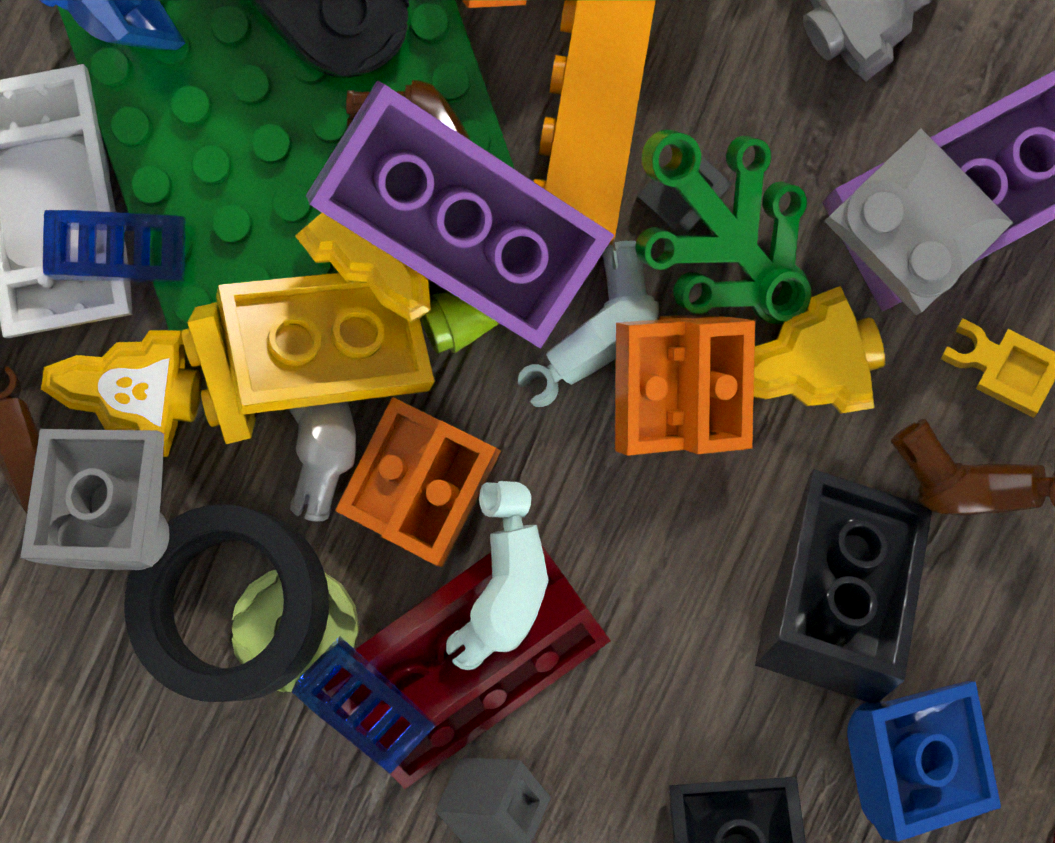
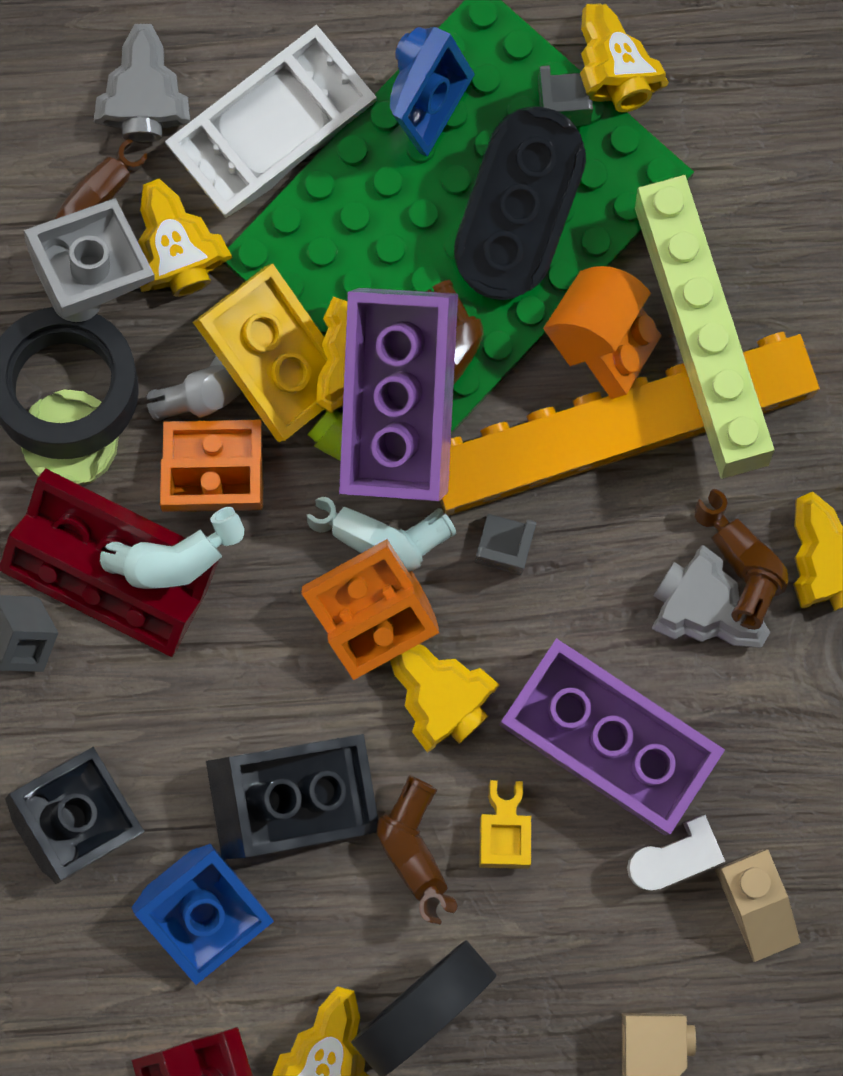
camera: 60 degrees right, 5 degrees down
(58, 245) = (244, 145): clear blue slope -> none
(207, 348) = (226, 278): yellow plate -> none
(309, 691) = (27, 484): clear blue slope -> none
(734, 233) = (489, 589): green plant -> none
(919, 222) = (563, 704): light grey slope -> none

